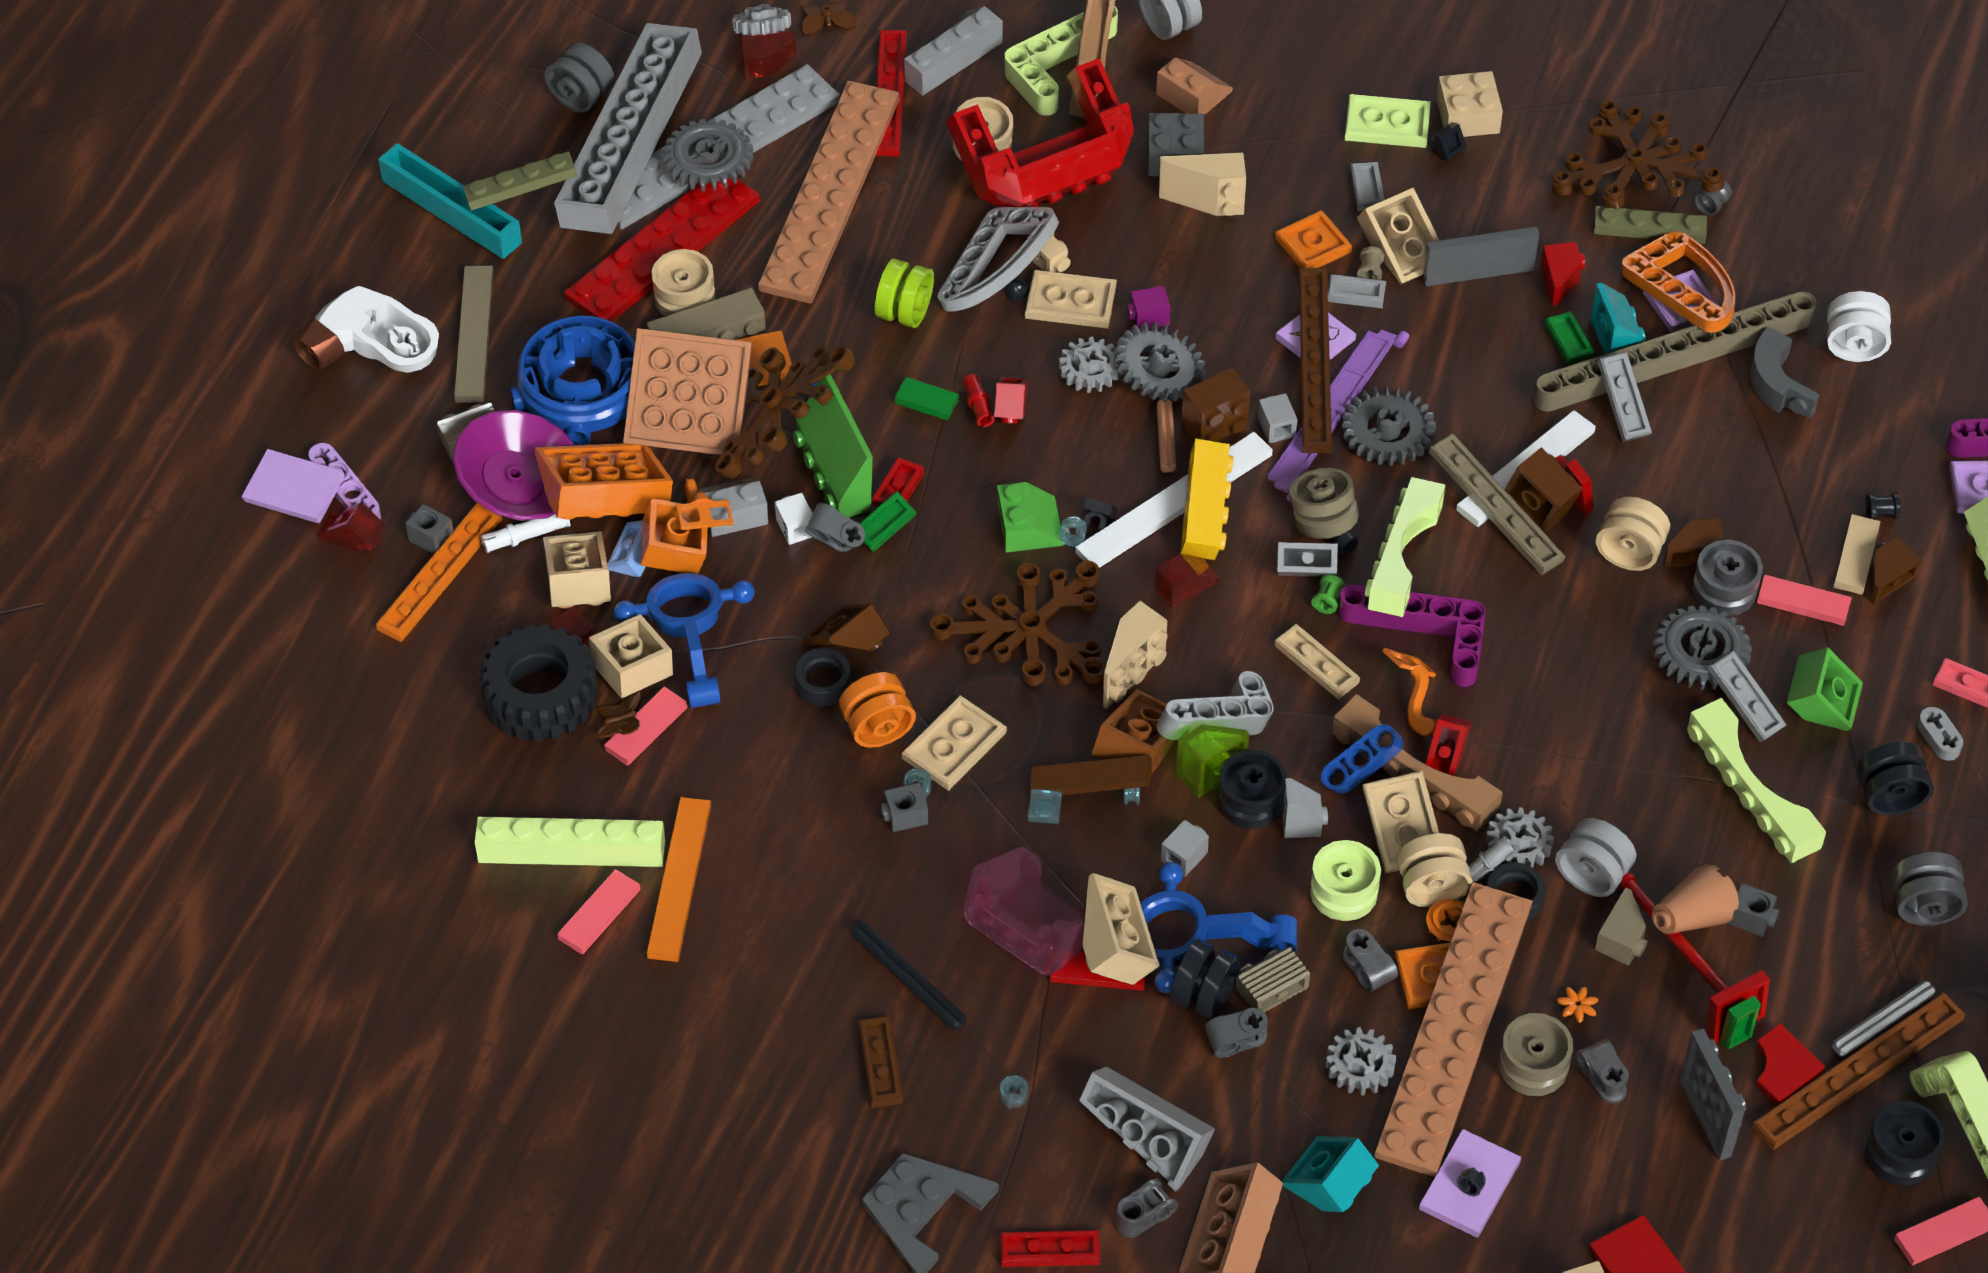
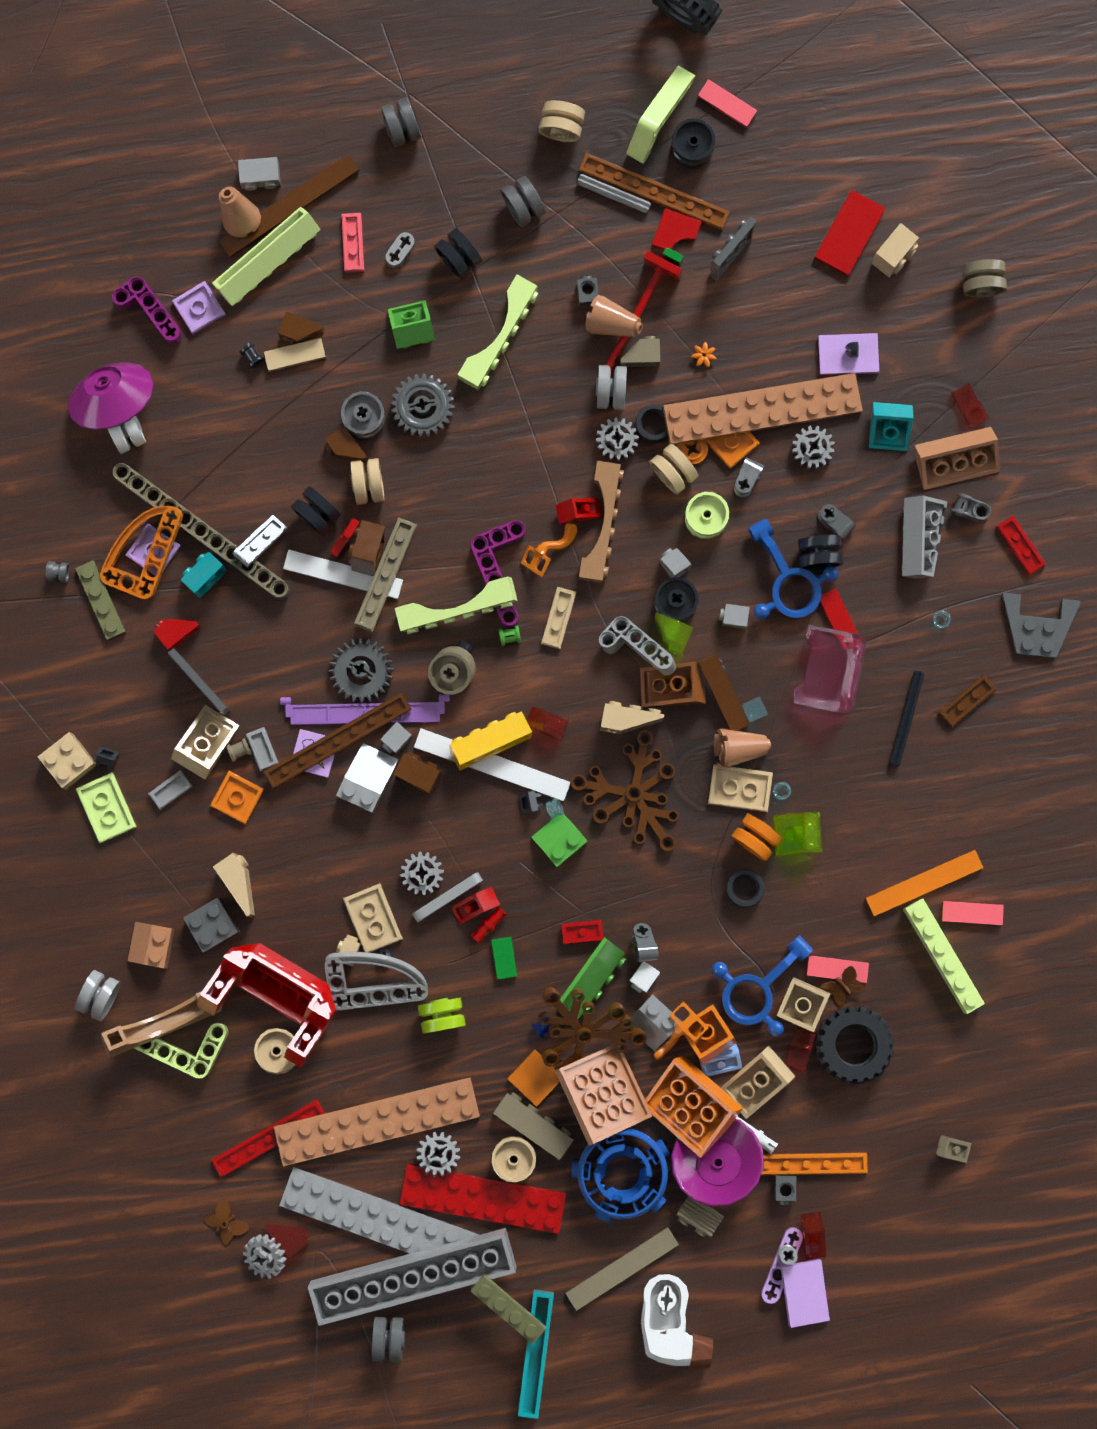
camera: 120 degrees left, 30 degrees up
(328, 723) = (953, 1149): none -> dark tan slope
(351, 483) = (787, 1261): none -> light grey bush
(706, 164) = (386, 1204): dark grey gear -> none
(733, 223) = (430, 1159): none -> light grey gear
(847, 769) = (799, 832): none -> clear neon green slope
(849, 628) = (708, 895): reddish brown slope -> none
(886, 521) = (615, 921): green tile -> none
(909, 797) = (804, 776): dark grey brick -> none
(964, 43) = (205, 1118): light grey wedge -> none
(1008, 756) = (738, 747): none -> nougat cone
(1042, 376) = (447, 897): none -> light grey beam
(1116, 932) = (826, 611): tan slope -> none
(1149, 307) = (356, 864): magenta brick -> none
(1166, 356) = (384, 819): dark grey gear -> none
(1166, 436) = (446, 797): nougat axle -> none
(1252, 358) = (367, 778): none -> slope
(1272, 979) = (791, 521): dark tan brick -> none
(1307, 559) = (496, 658): light grey brick -> none
(1376, 759) = (615, 547): blue beam -> none
(1398, 814) = (646, 506): tan tile -> none
(1491, 858) = (645, 445): light grey axle -> none
(1535, 1054) = (766, 352): dark tan wheel -> none
(1569, 338) = (224, 602): green tile -> none
(1604, 1071) = (737, 321): flat silver piece -> none
(1627, 463) = (317, 508): none -> black wheel
(1636, 159) = (55, 607): reddish brown plant -> none
(1746, 696) = (444, 363): light grey tile -> none
(1771, 381) = (187, 469): dark grey arch -> none
(1804, 600) = (347, 367): coral tile -> none
(1912, 328) = (110, 396): none -> magenta dish

